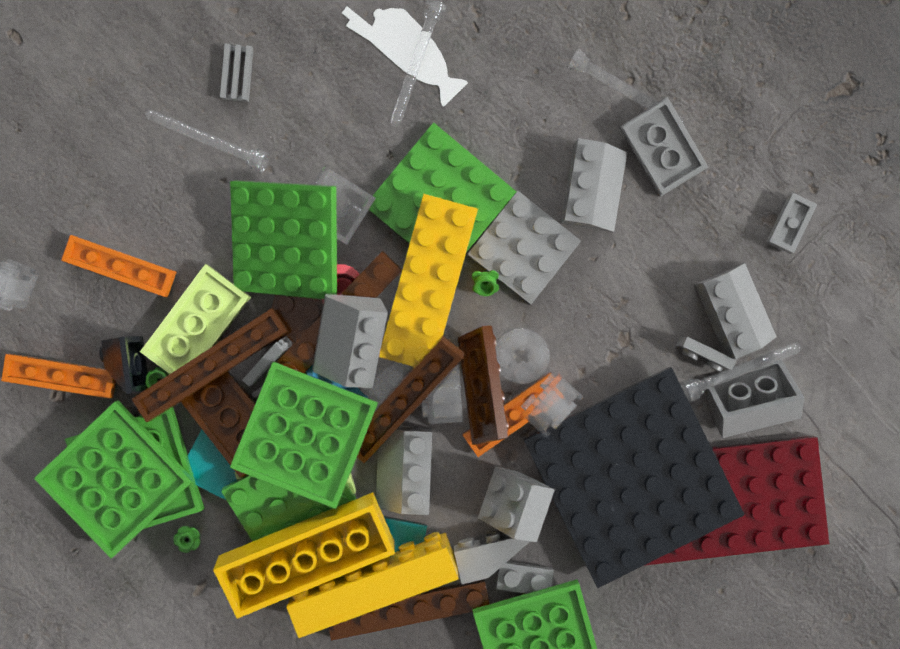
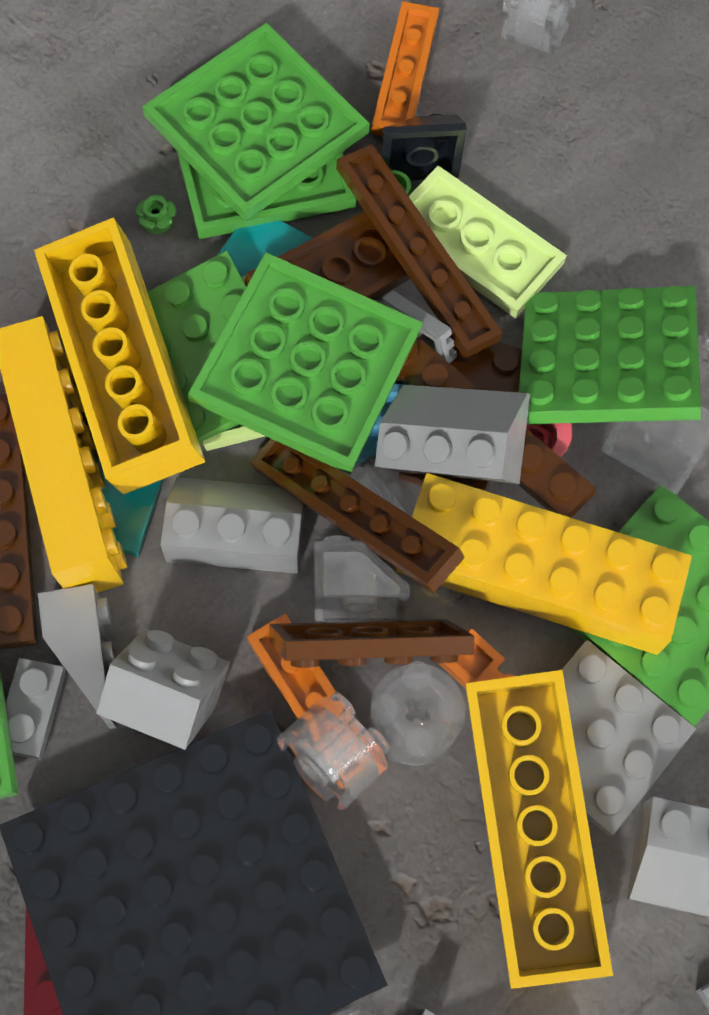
camera: 90 degrees right, 20 degrees down
(118, 266) = (561, 151): orange plate -> none
(485, 288) = (534, 655): bright green plate -> none
(489, 315) = (477, 667): none -> orange plate
(584, 287) = (538, 830): none -> yellow brick

